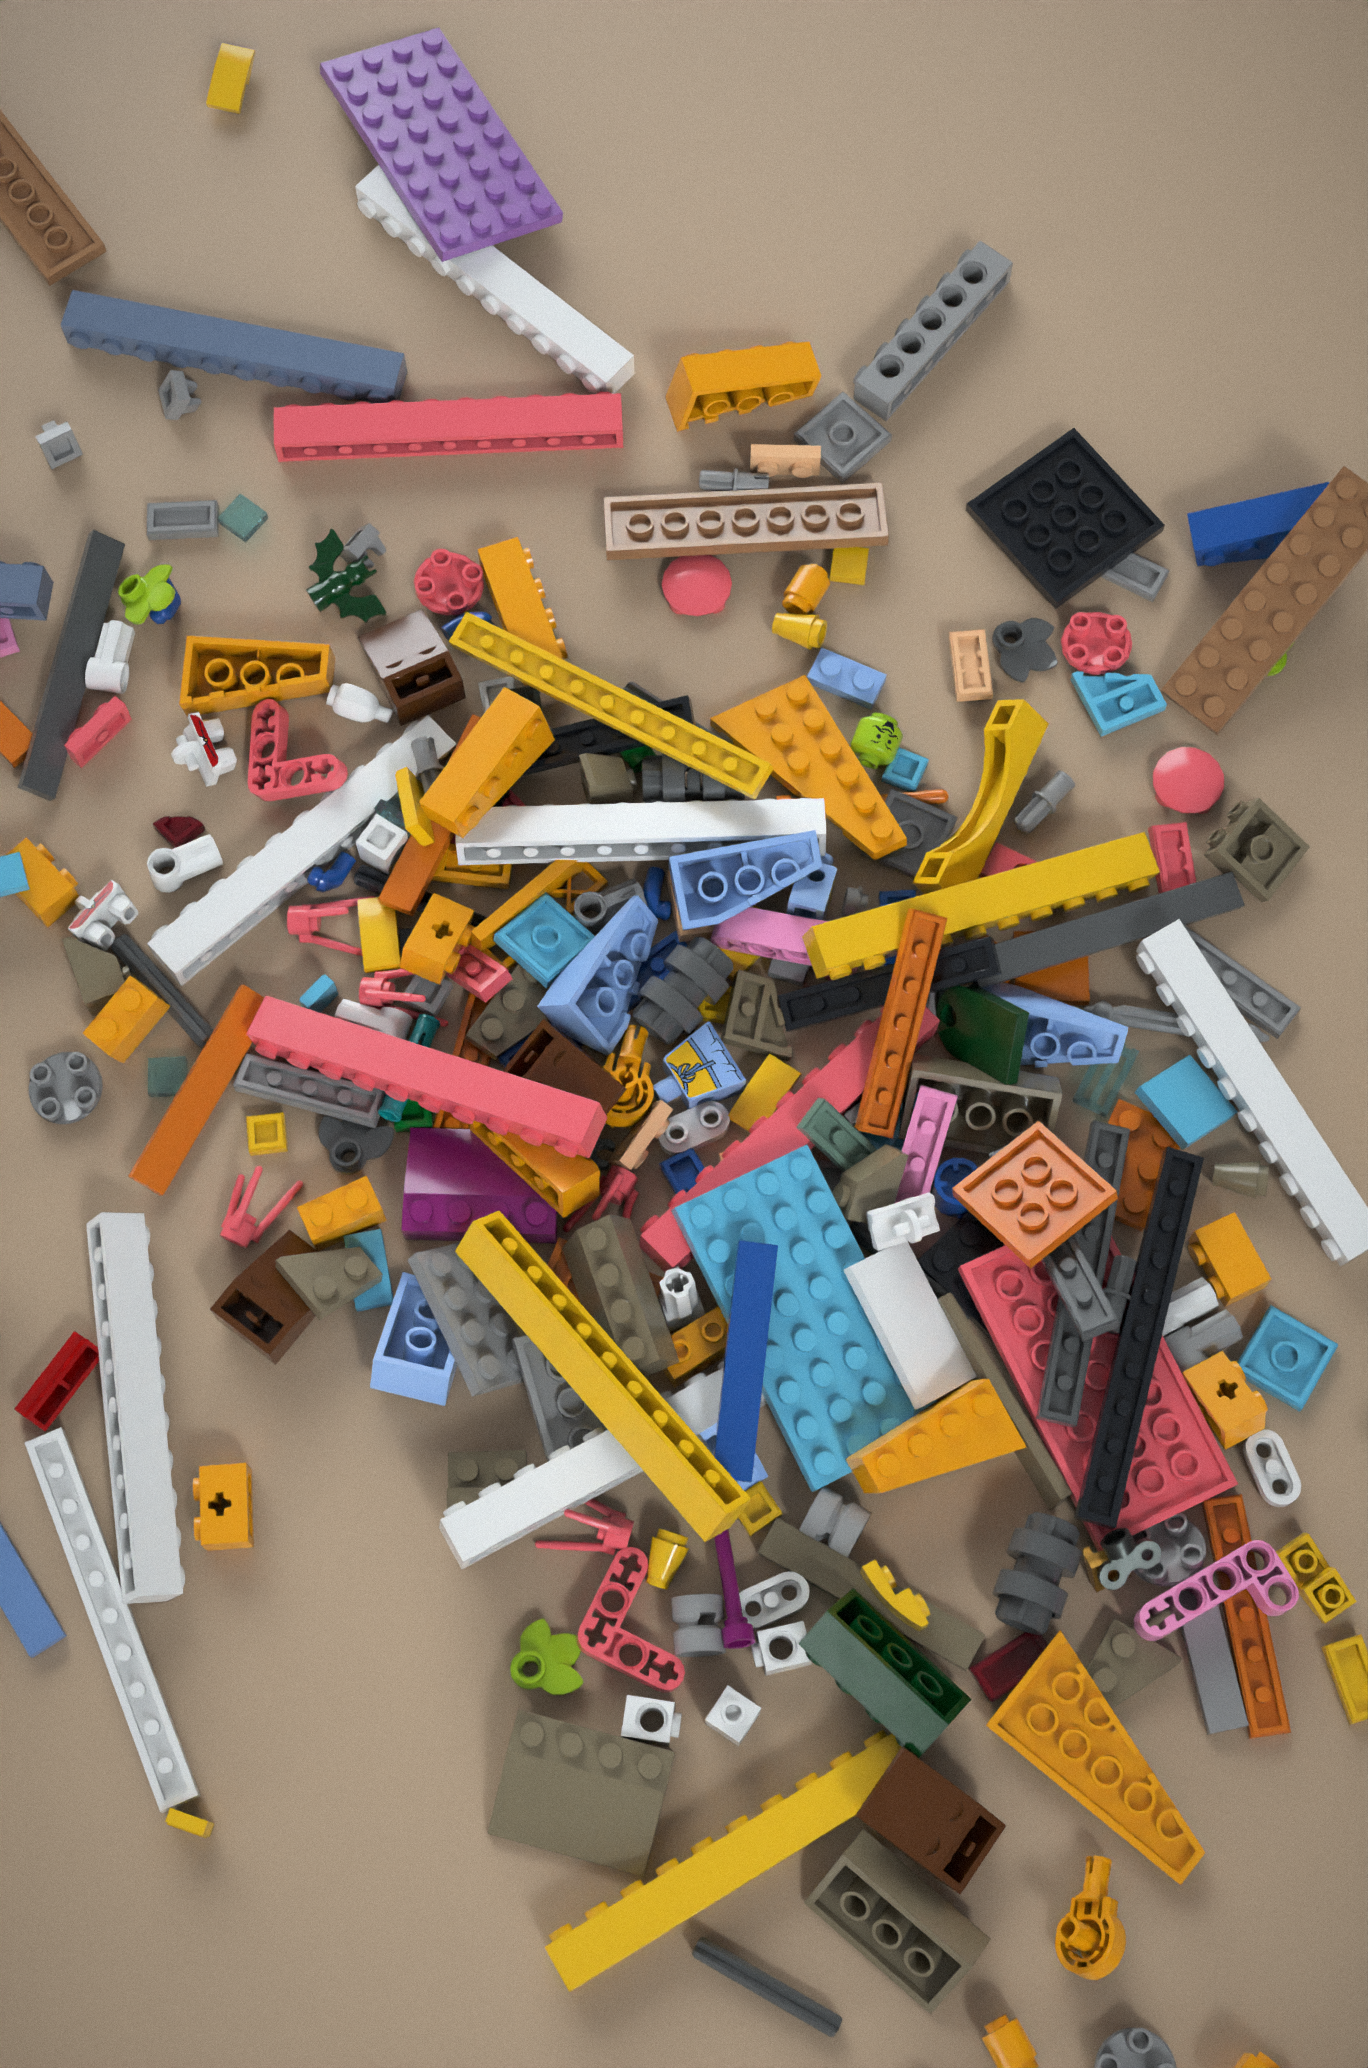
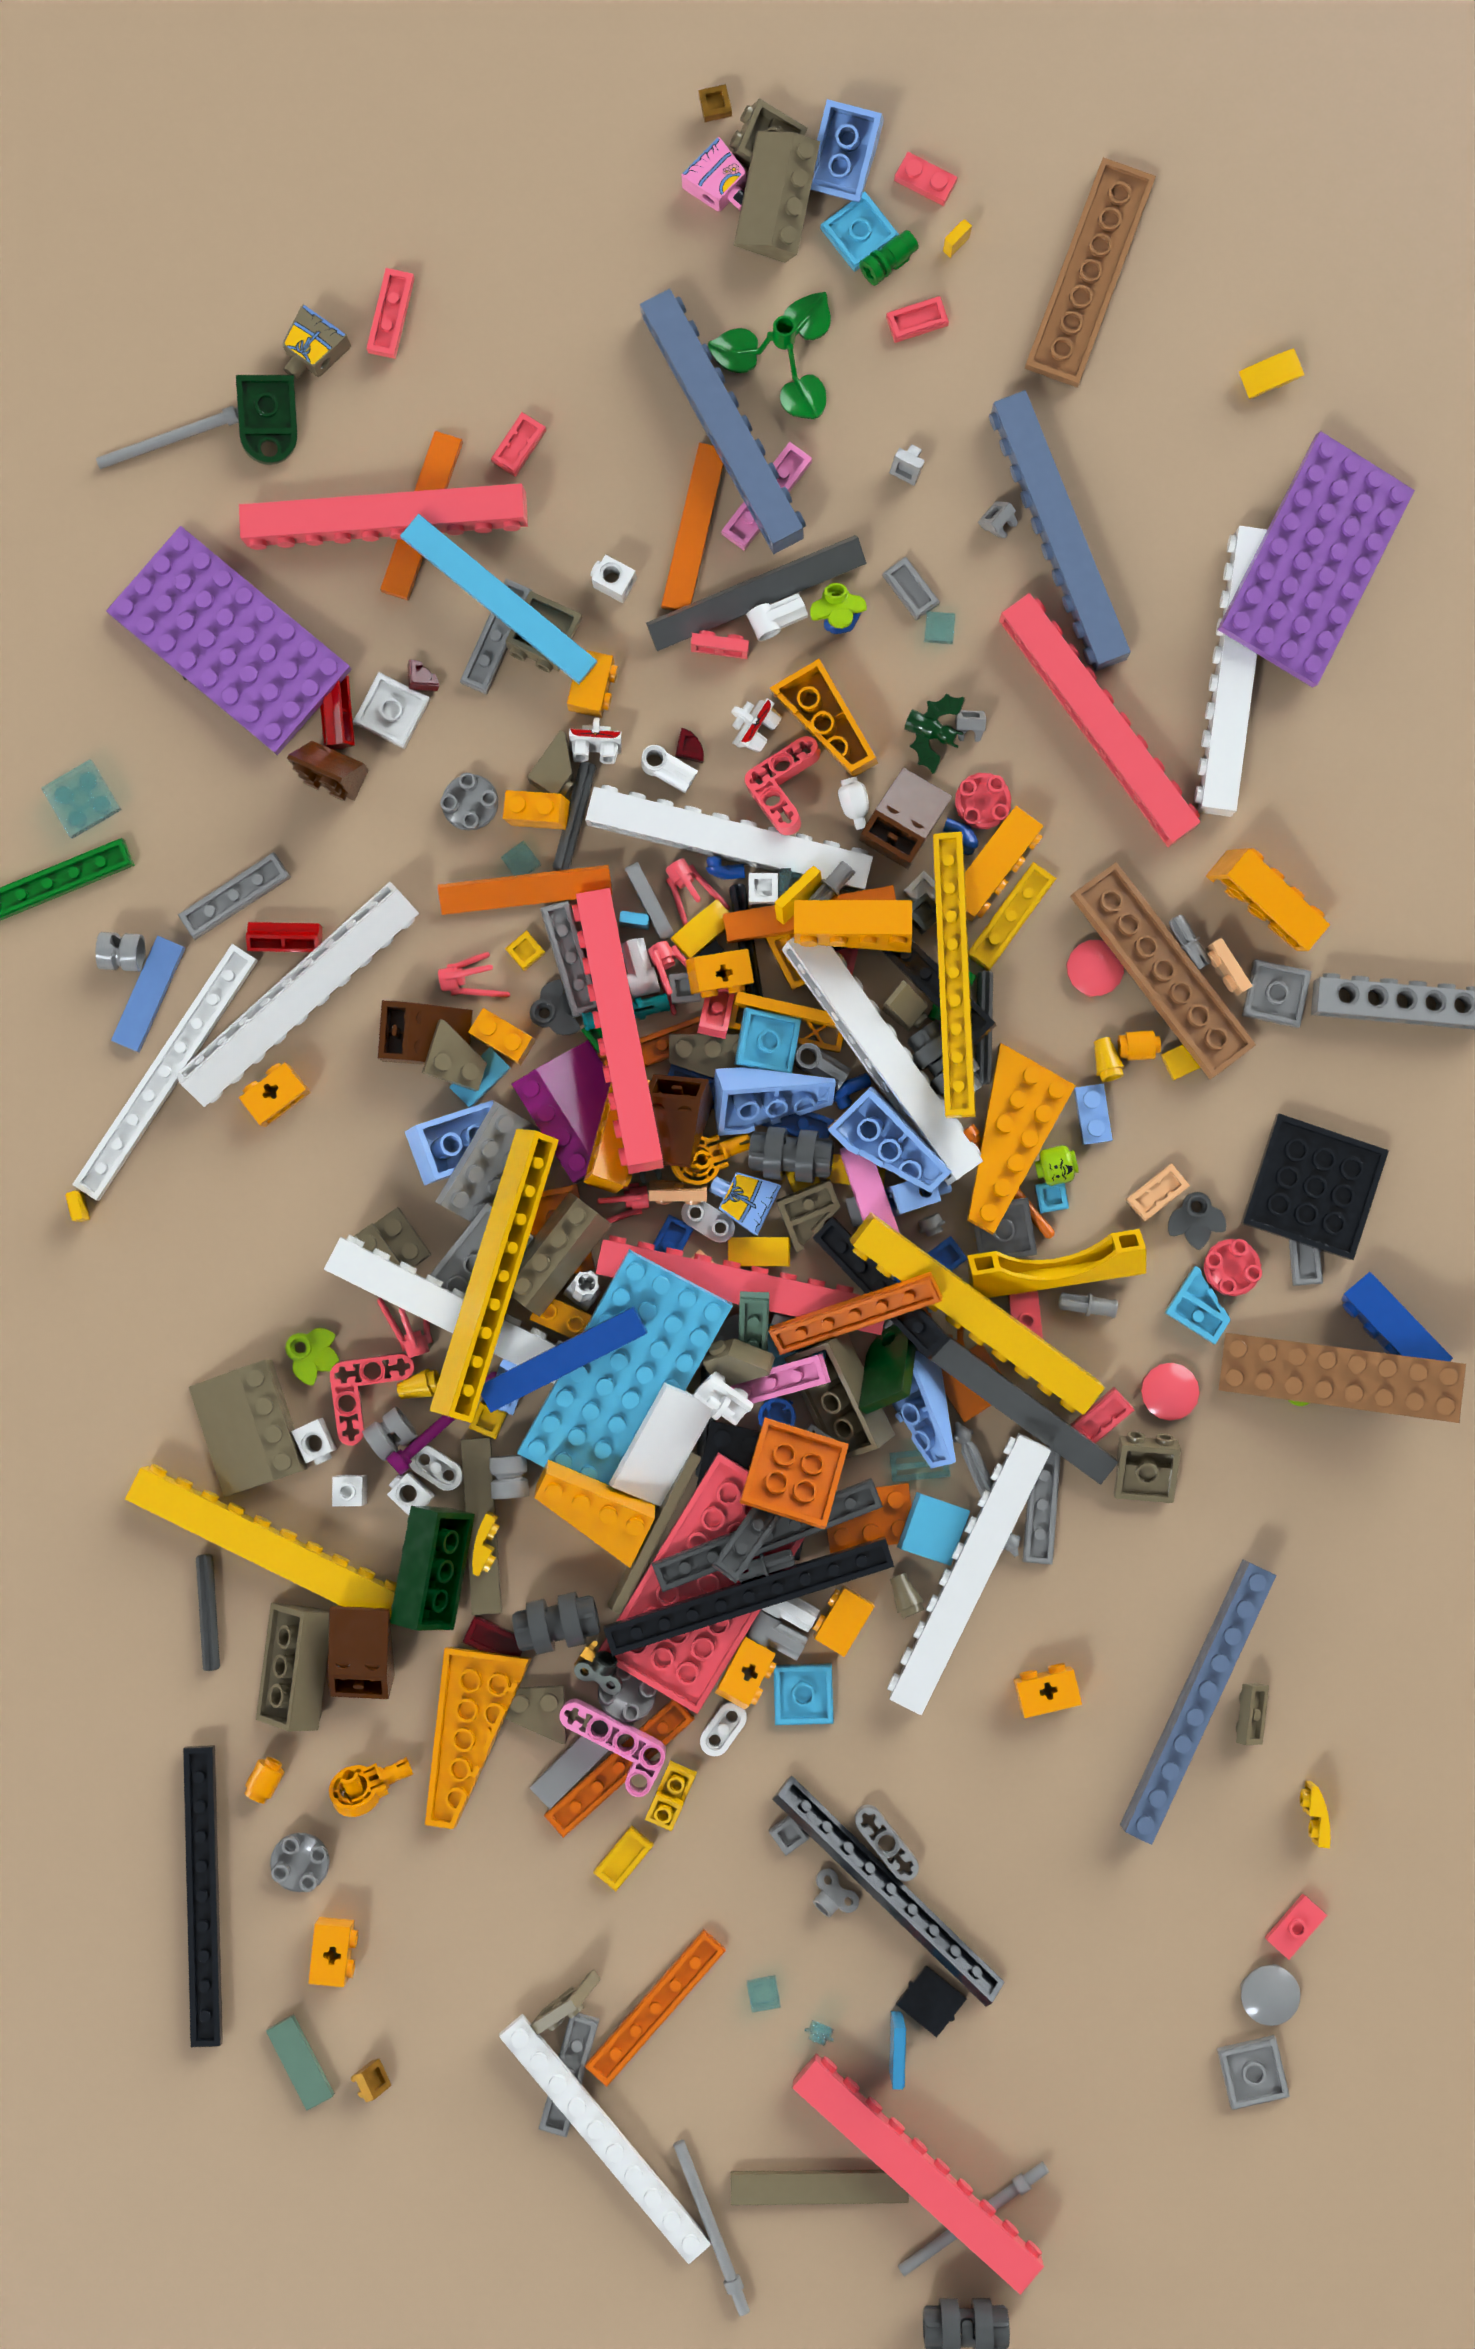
camera: 60 degrees right, 15 degrees up
(308, 969) = (649, 901): none -> light grey beam
(584, 625) = (1011, 916): none -> yellow tile

